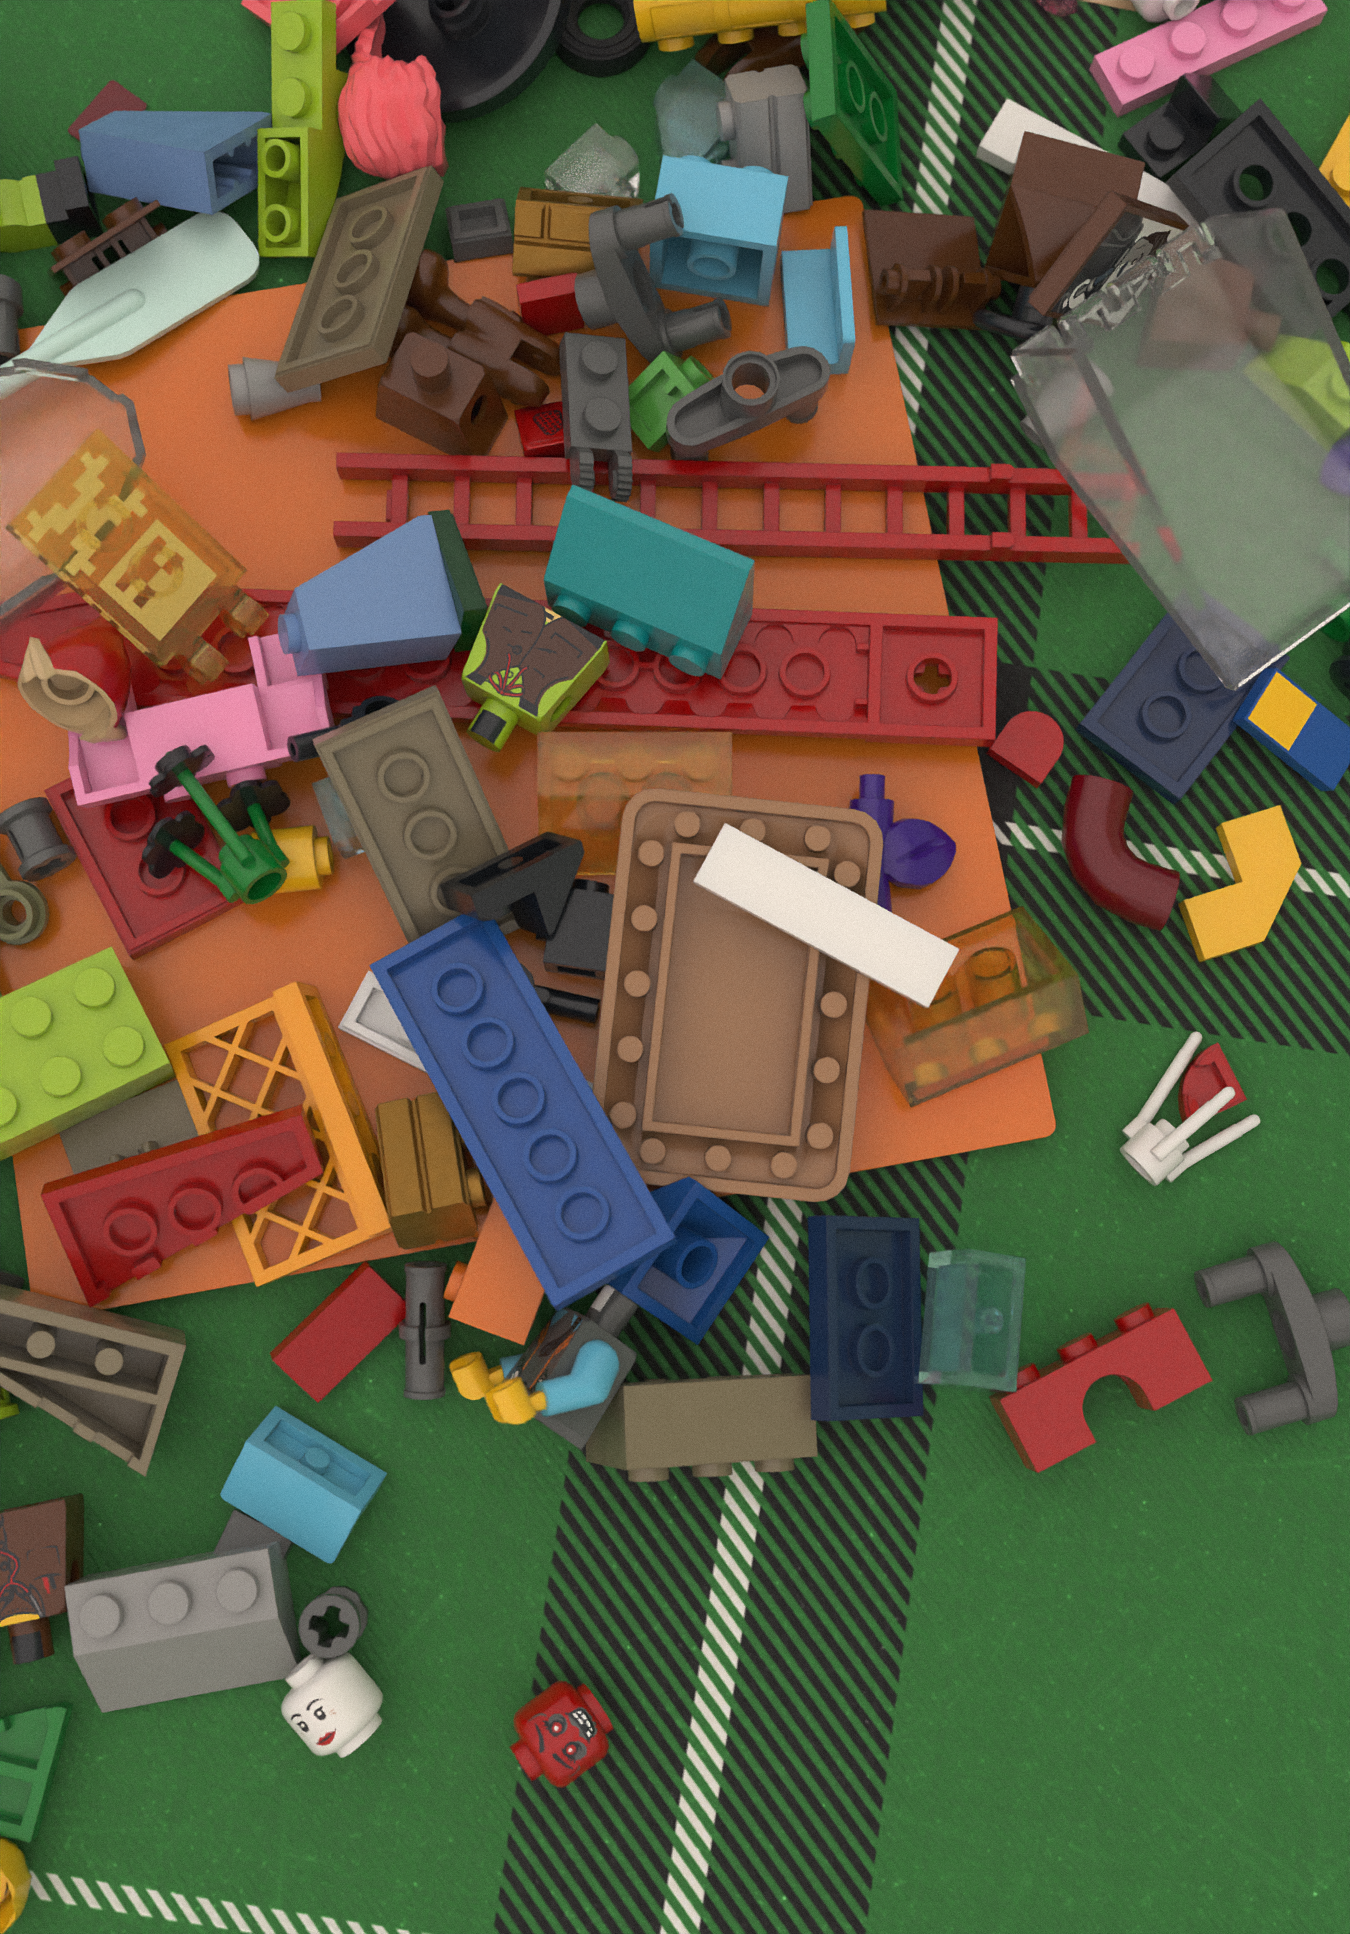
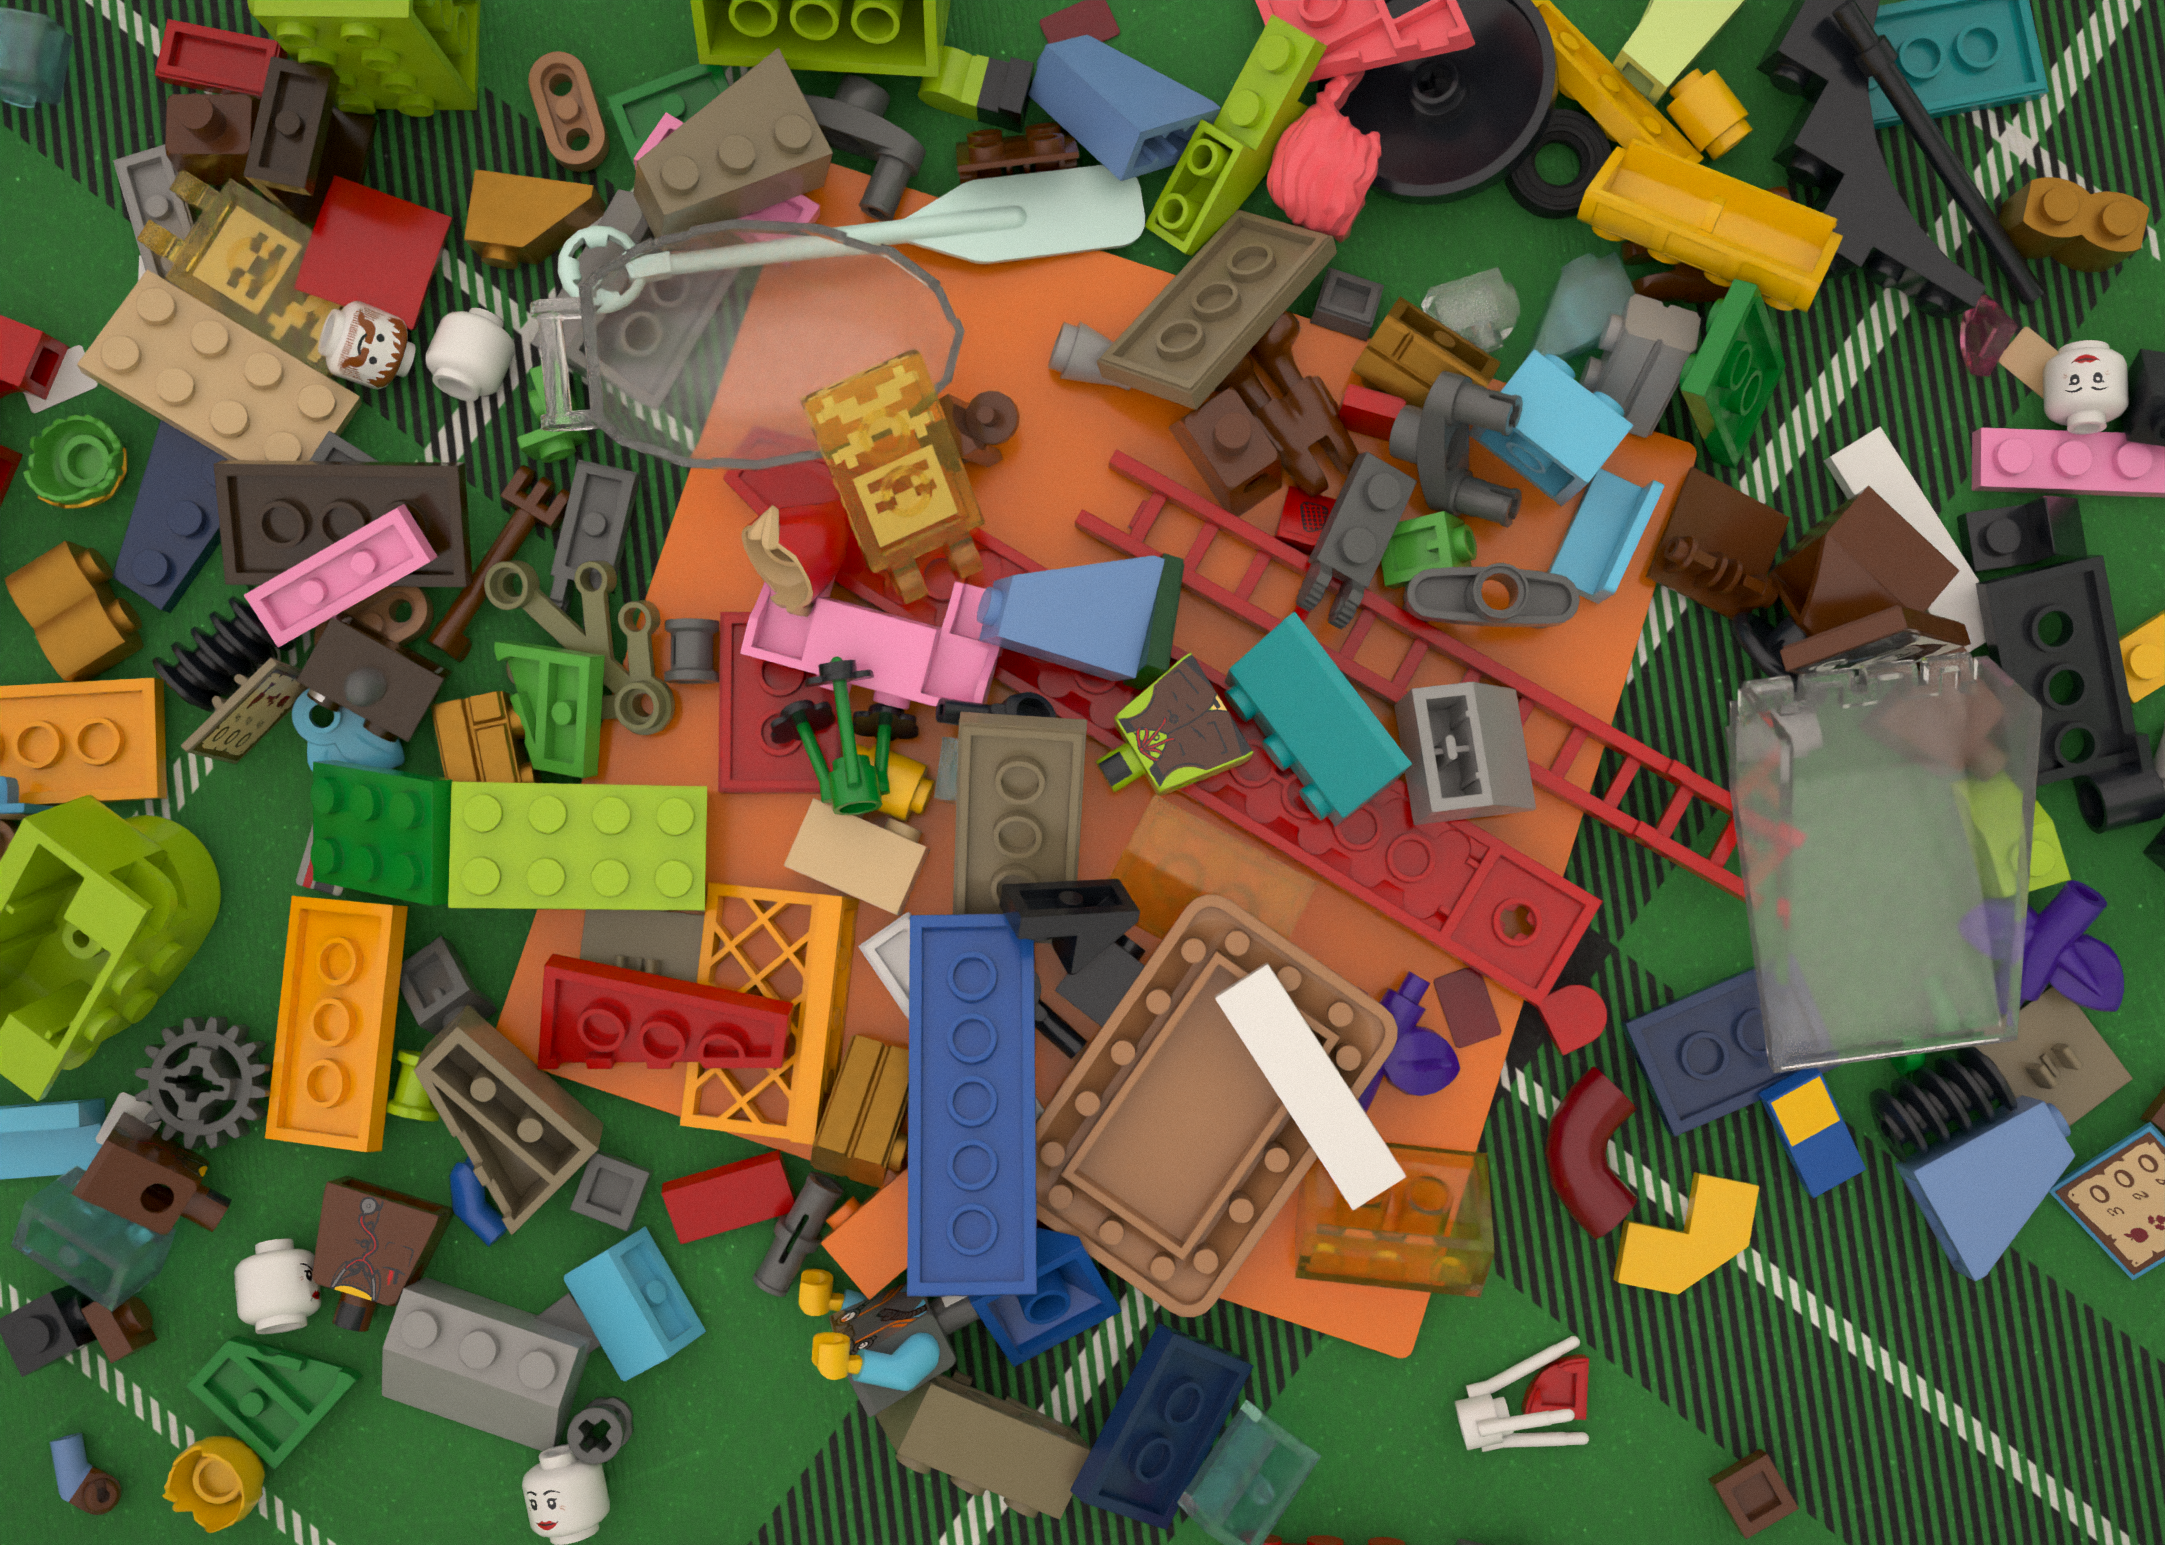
camera: 35 degrees right, 5 degrees up
(94, 1477) = (471, 1206): none -> blue arm
(202, 482) = (983, 422): none -> reddish brown hips
(222, 1384) = (612, 1190): none -> dark grey tile
(292, 941) = (859, 856): none -> tan brick
(802, 547) = (1464, 752): none -> light grey slope
(930, 785) = (1467, 1007): none -> dark red sticker

